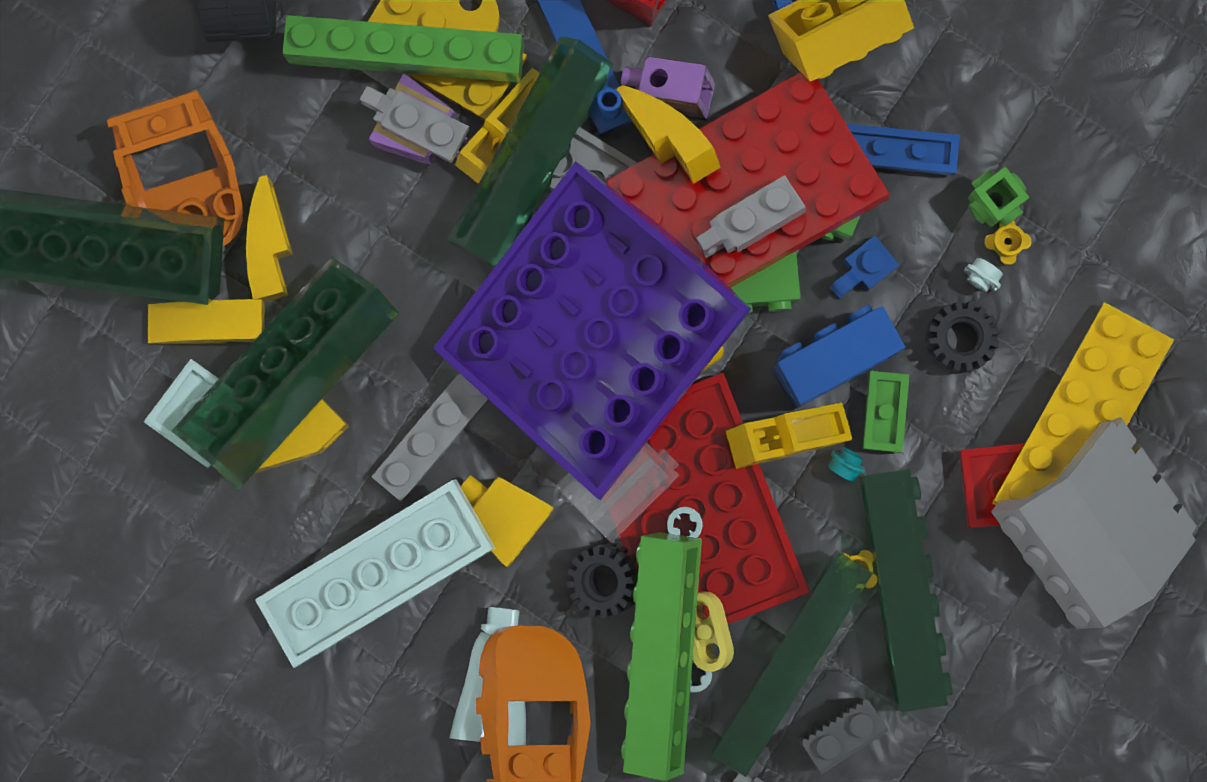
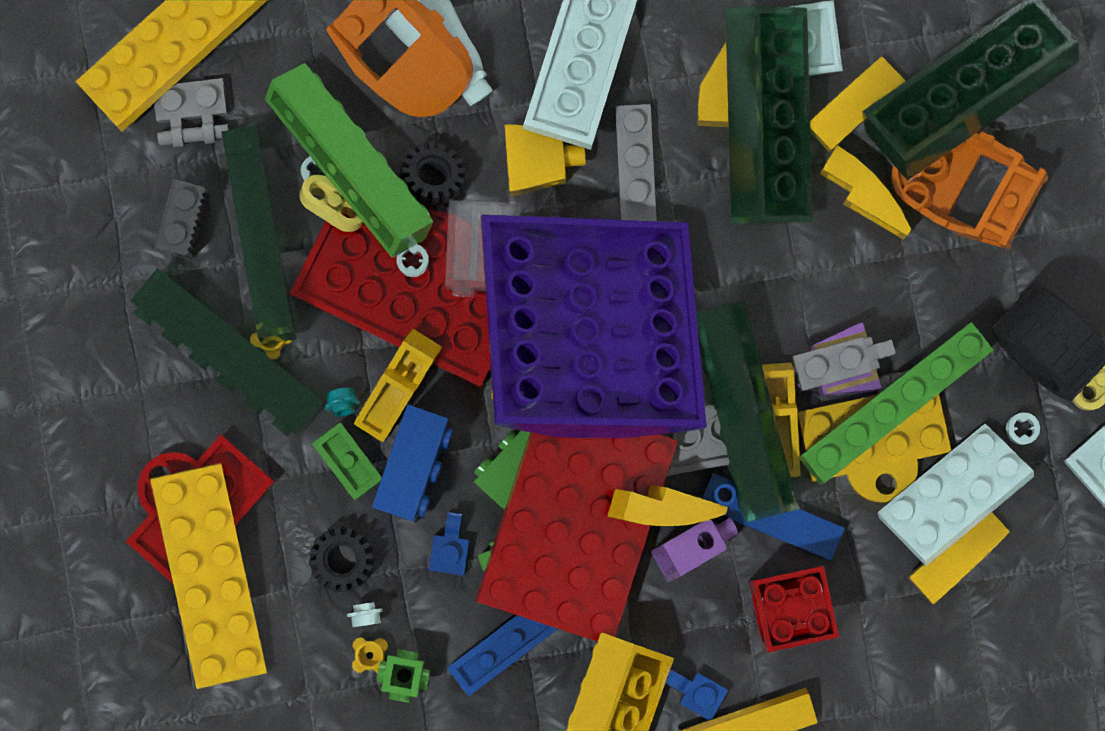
camera: 135 degrees right, 0 degrees up
(752, 218) = (553, 499): light grey hinge -> none
(1101, 530) = (130, 512): light grey hinge -> none

